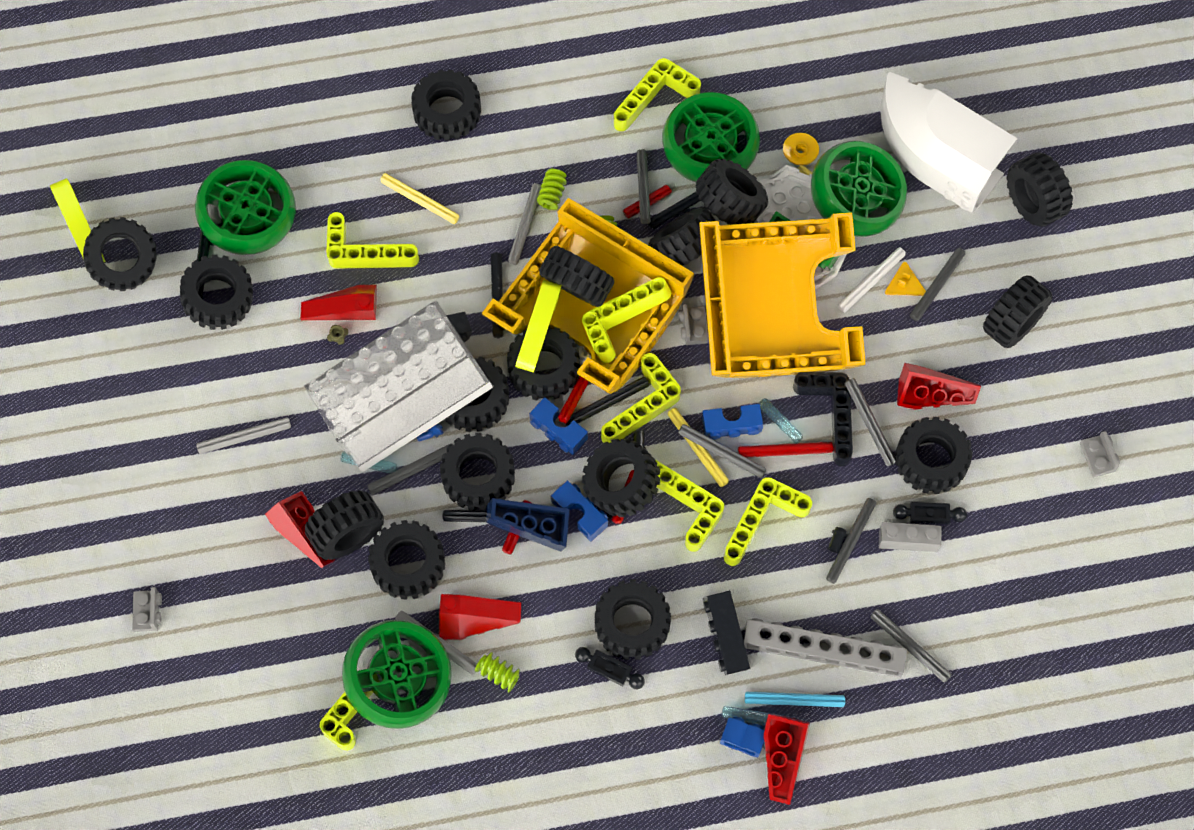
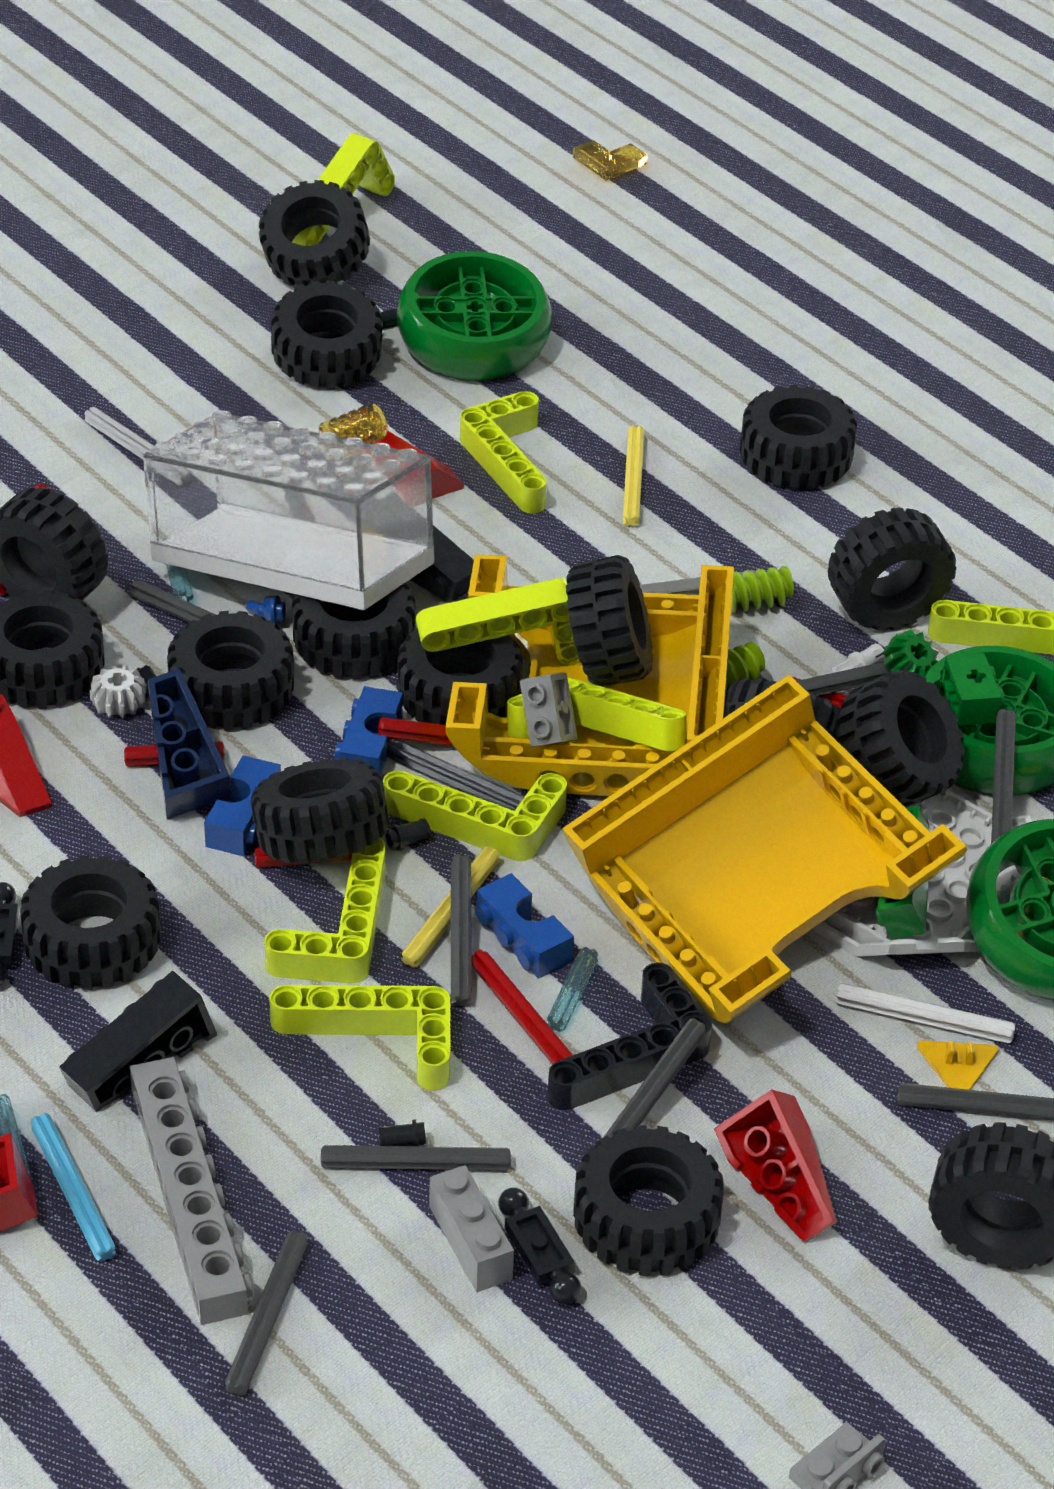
camera: 60 degrees right, 25 degrees down
(124, 62) = (609, 163): none -> clear yellow plate
(312, 320) = (365, 423): none -> clear yellow piece
(451, 529) = (118, 691): none -> white gear
(593, 124) = (880, 544): none -> black tyre
(616, 338) = (548, 709): none -> light grey bracket
(629, 175) = (860, 659): none -> white axle
(649, 151) = (910, 653): none -> green gear
(707, 141) = (972, 688): none -> green brick
(768, 164) = (1003, 773): none -> dark grey axle

